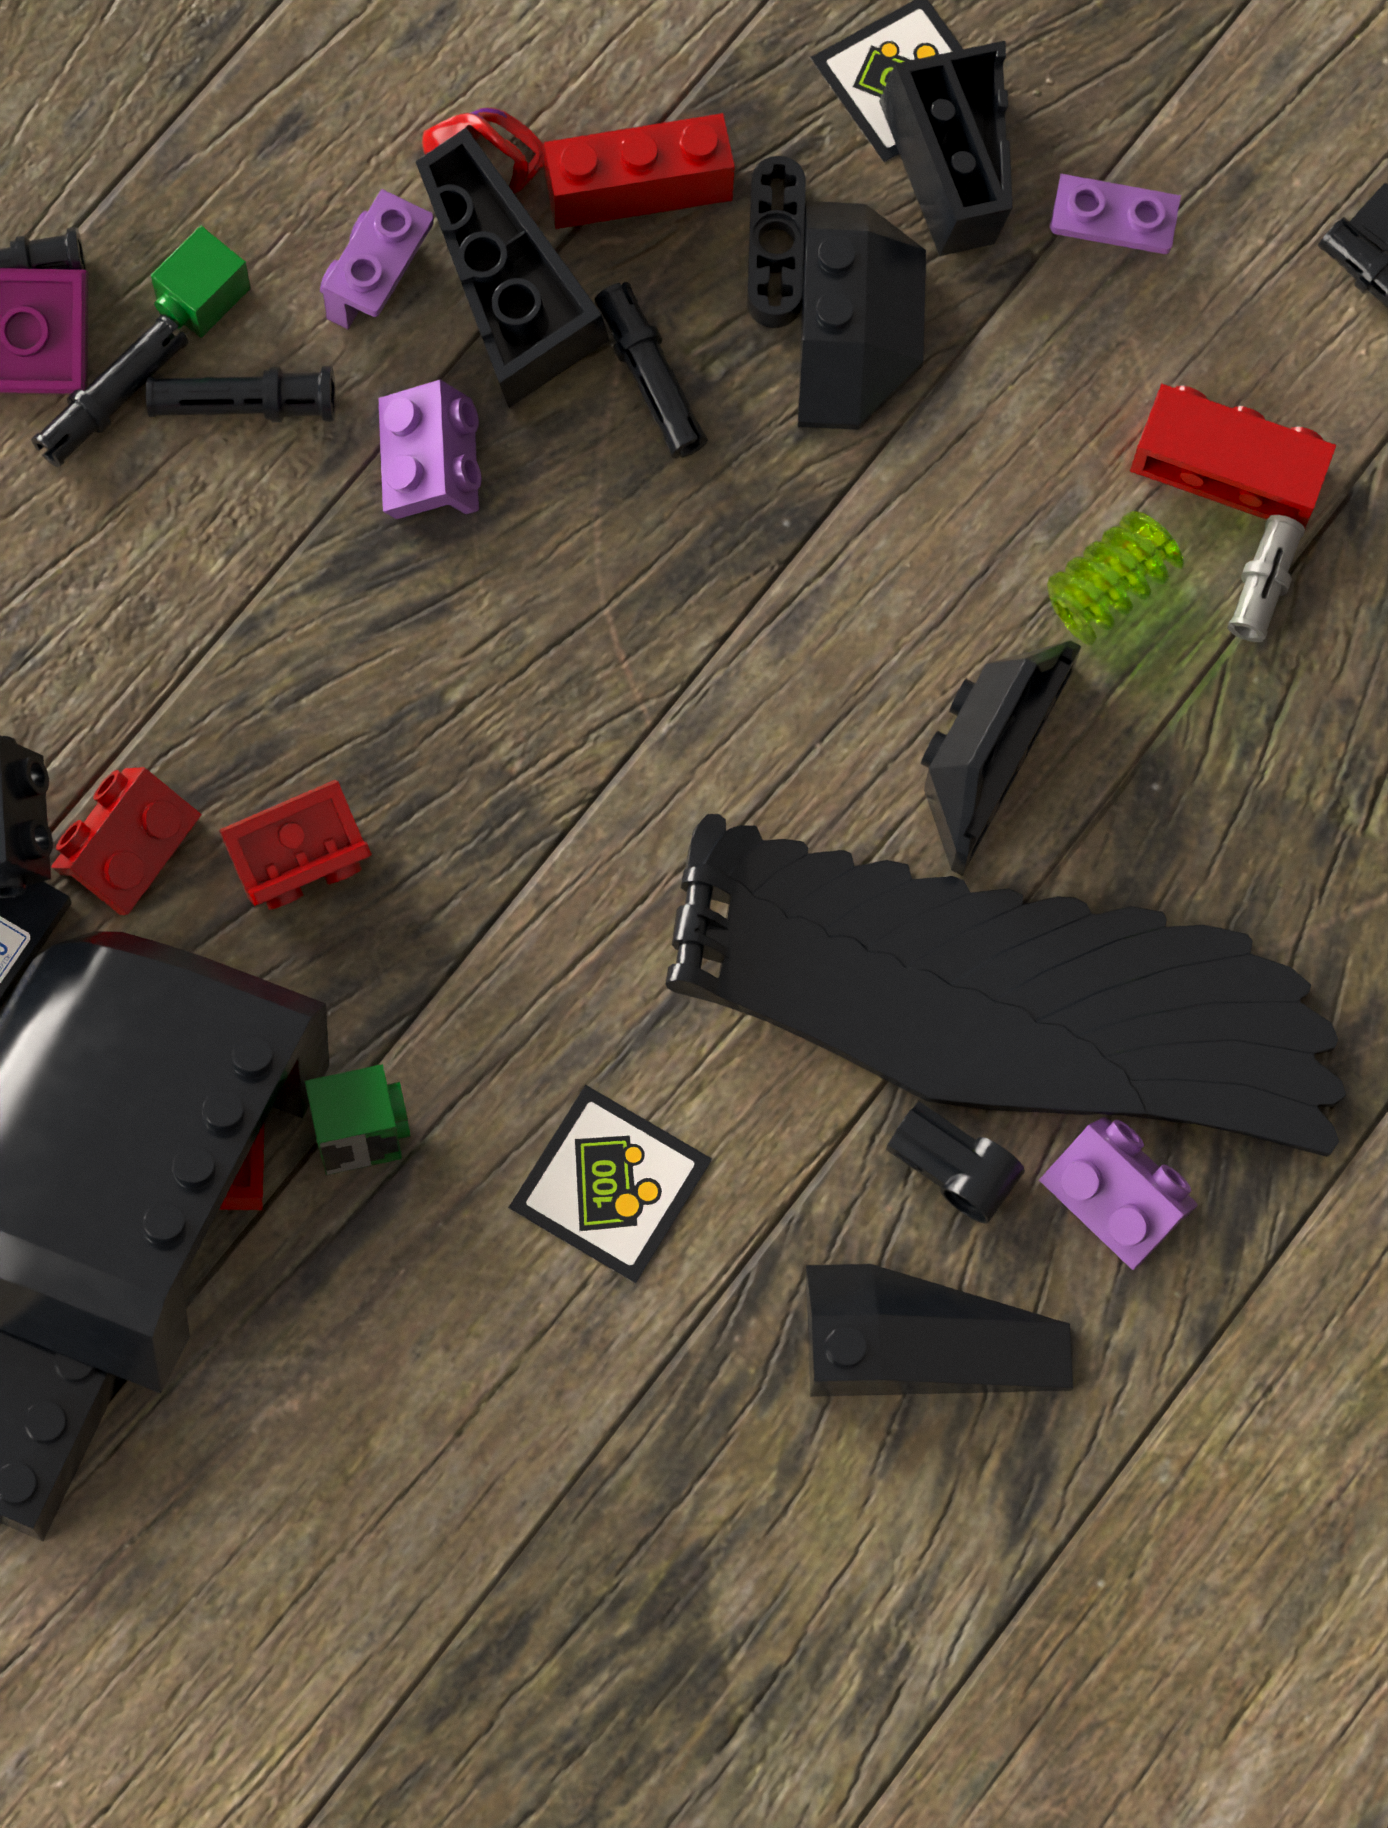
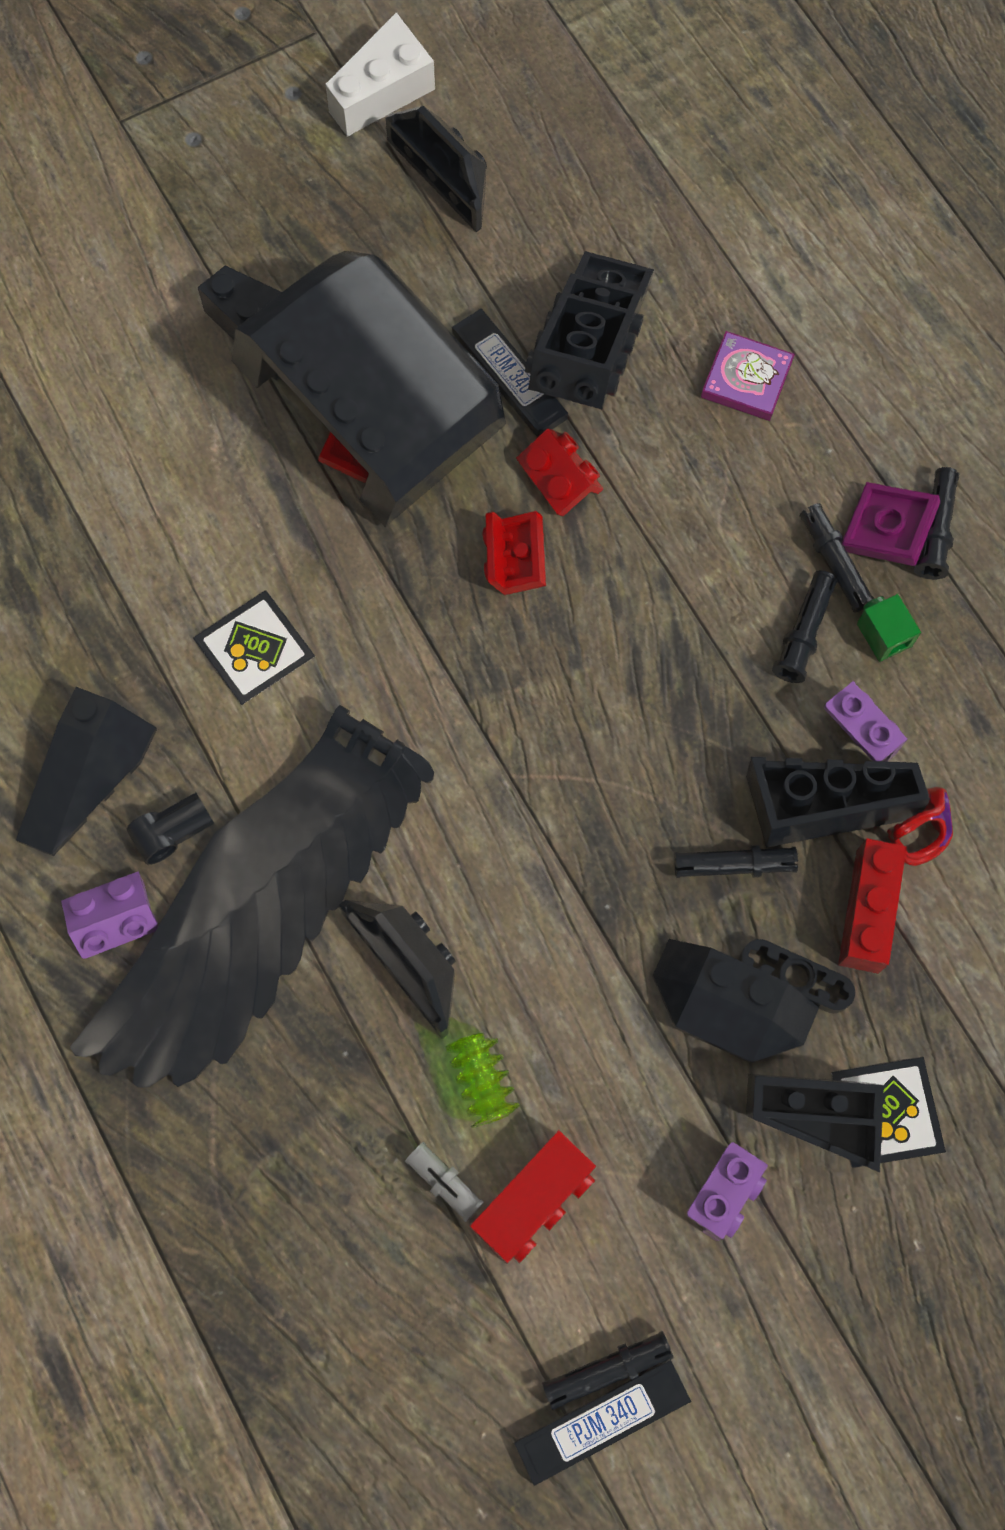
camera: 115 degrees right, 0 degrees up
(357, 1118) = (338, 514): green brick -> none
(428, 450) = (730, 716): medium lavender bracket -> none

